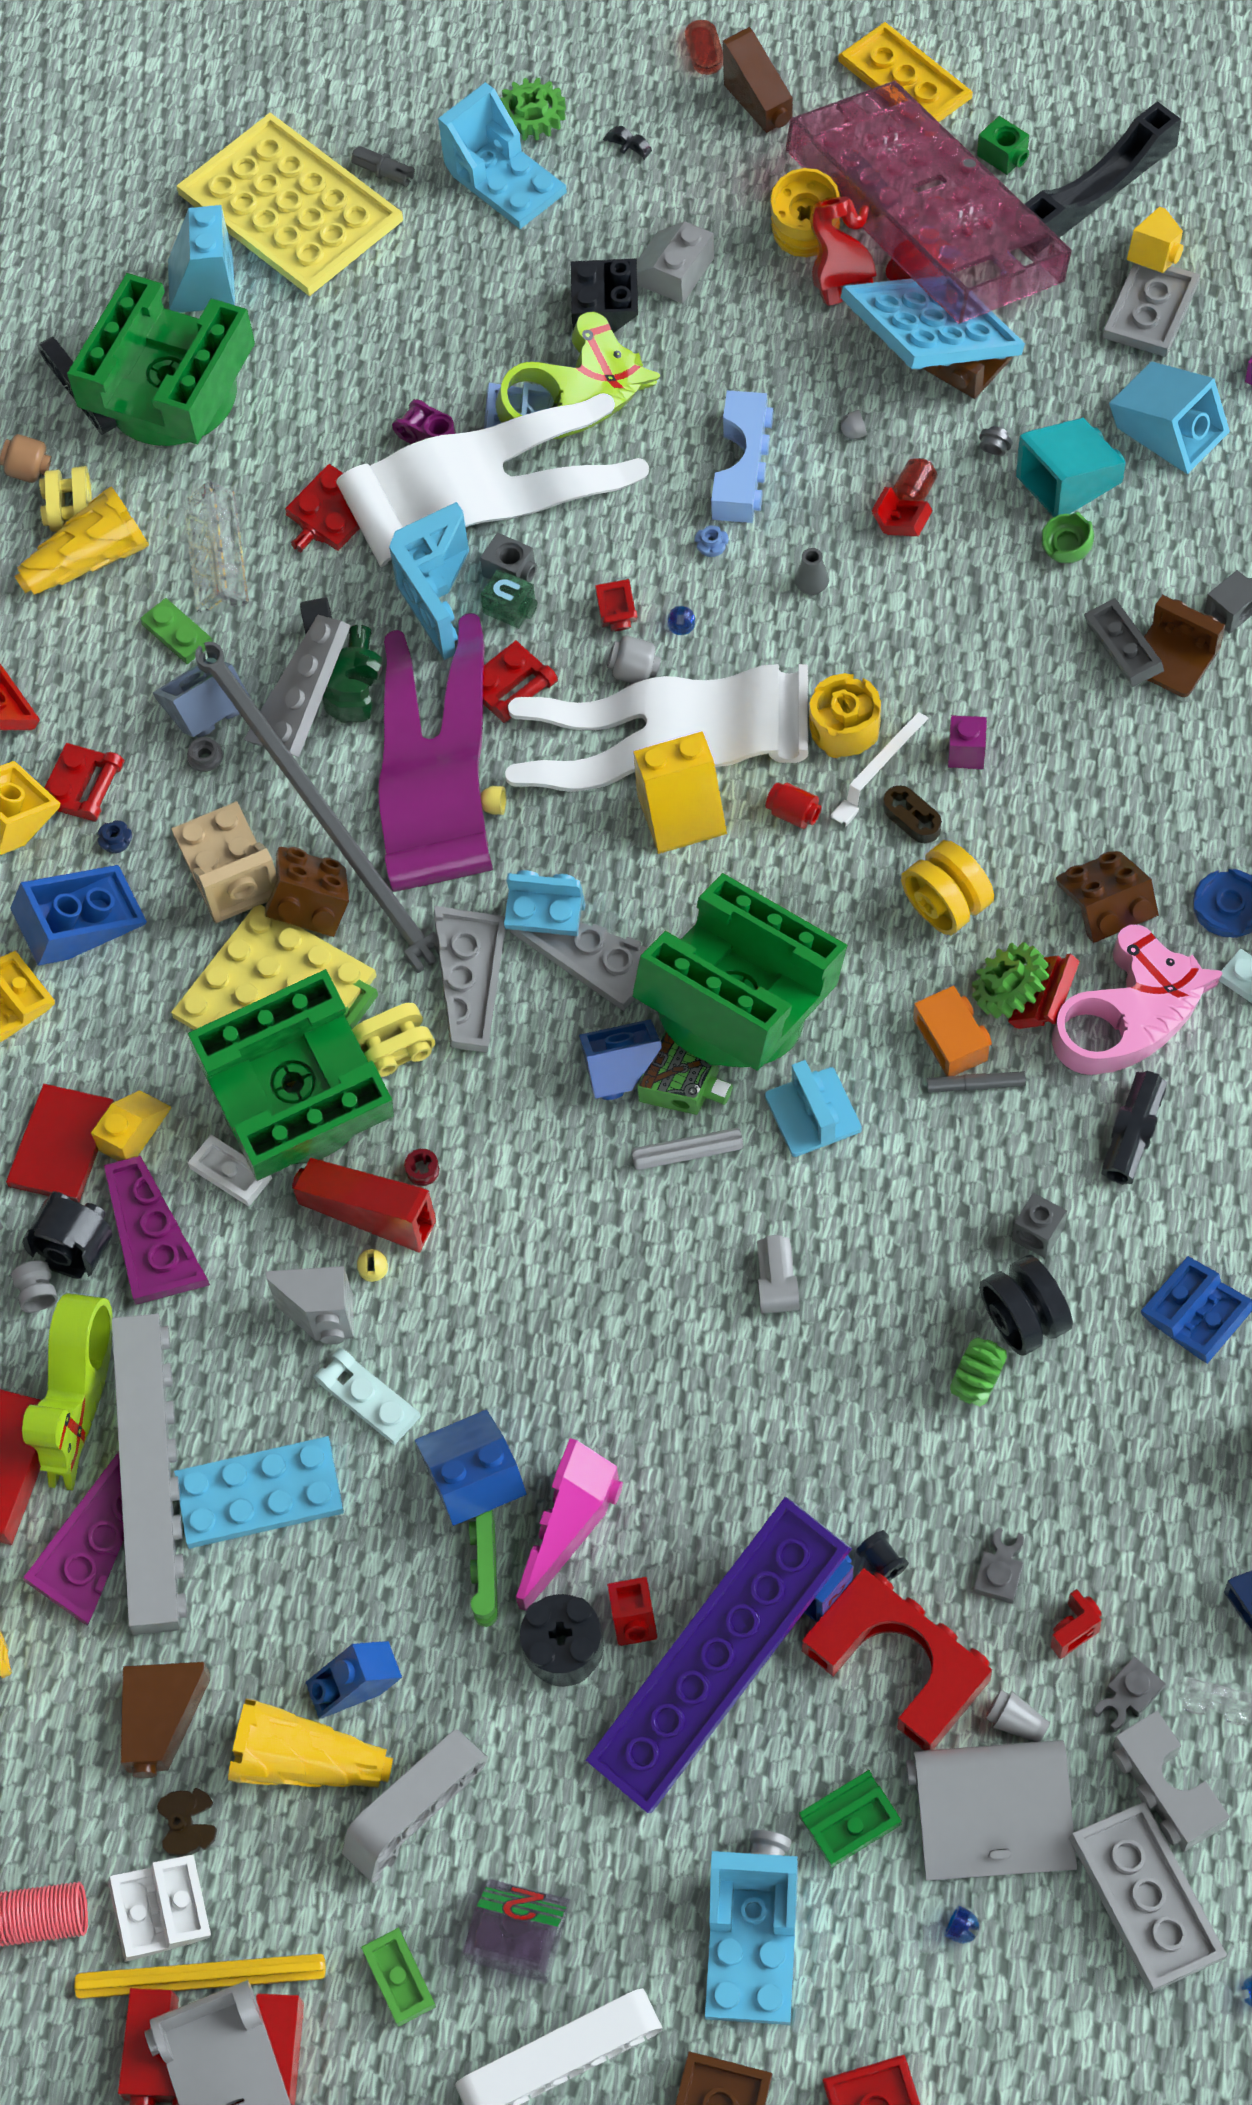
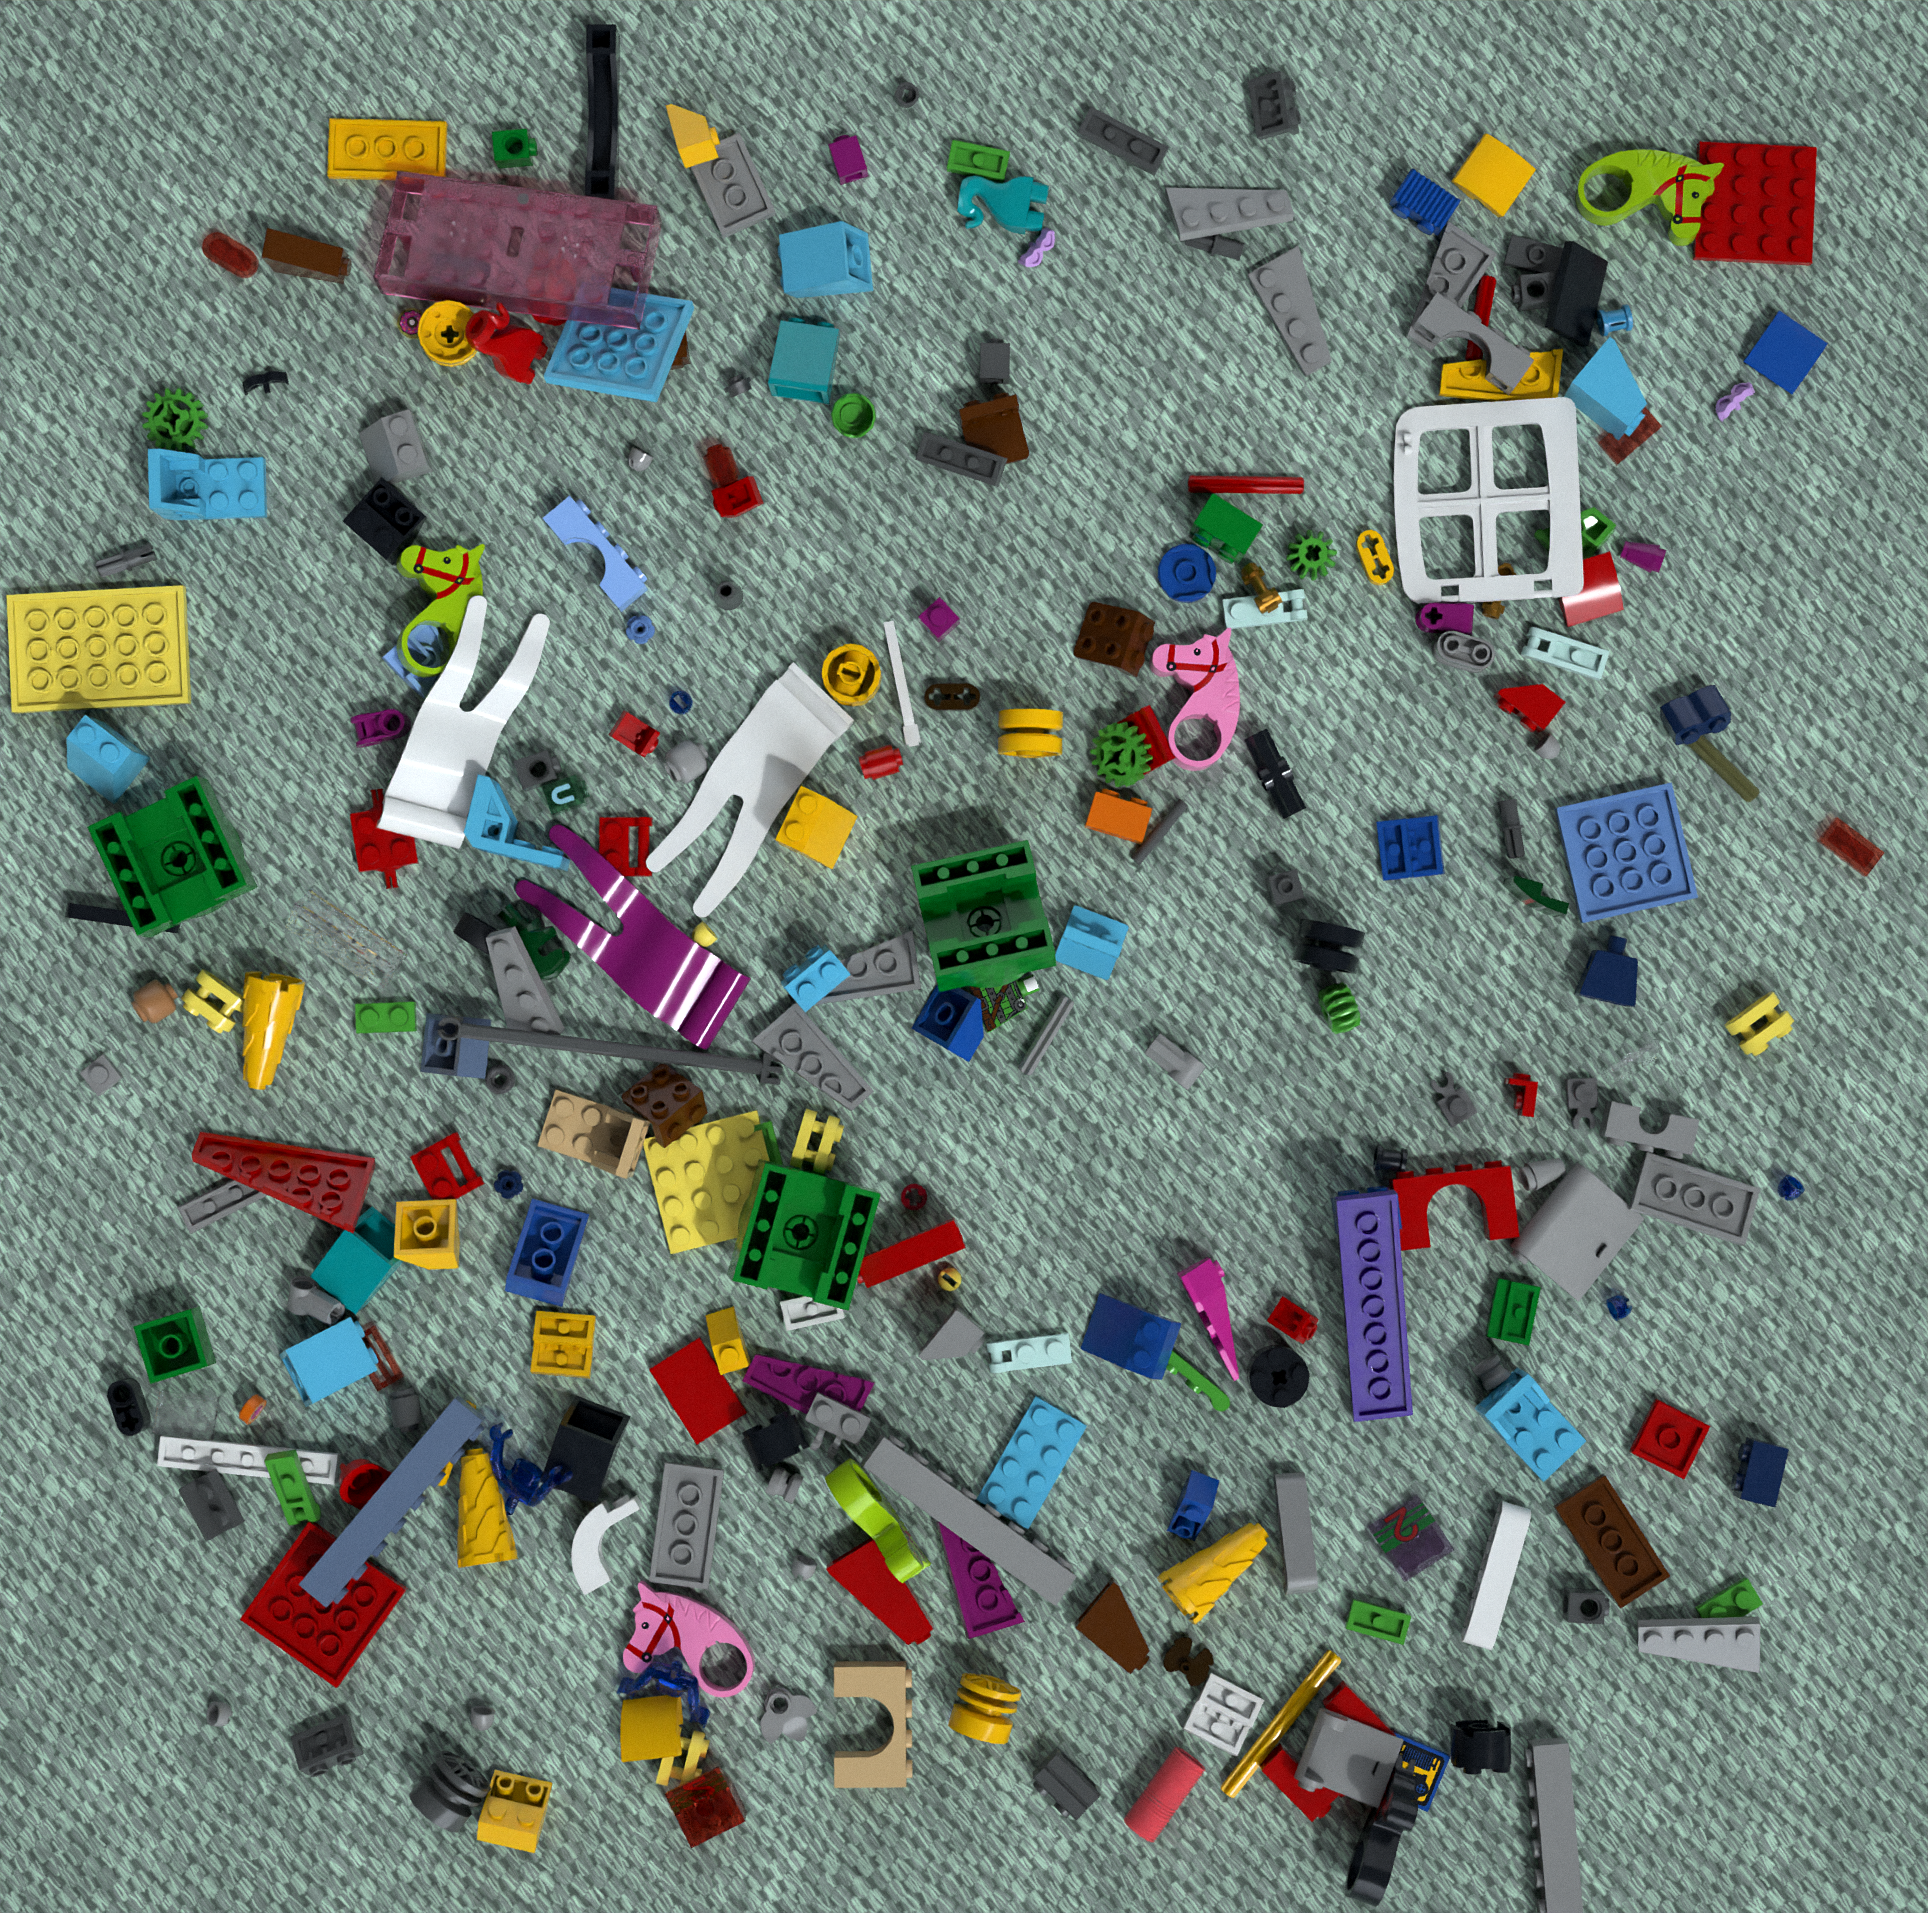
camera: 50 degrees left, 25 degrees up
(140, 1272) = (838, 1420): none -> light grey hinge

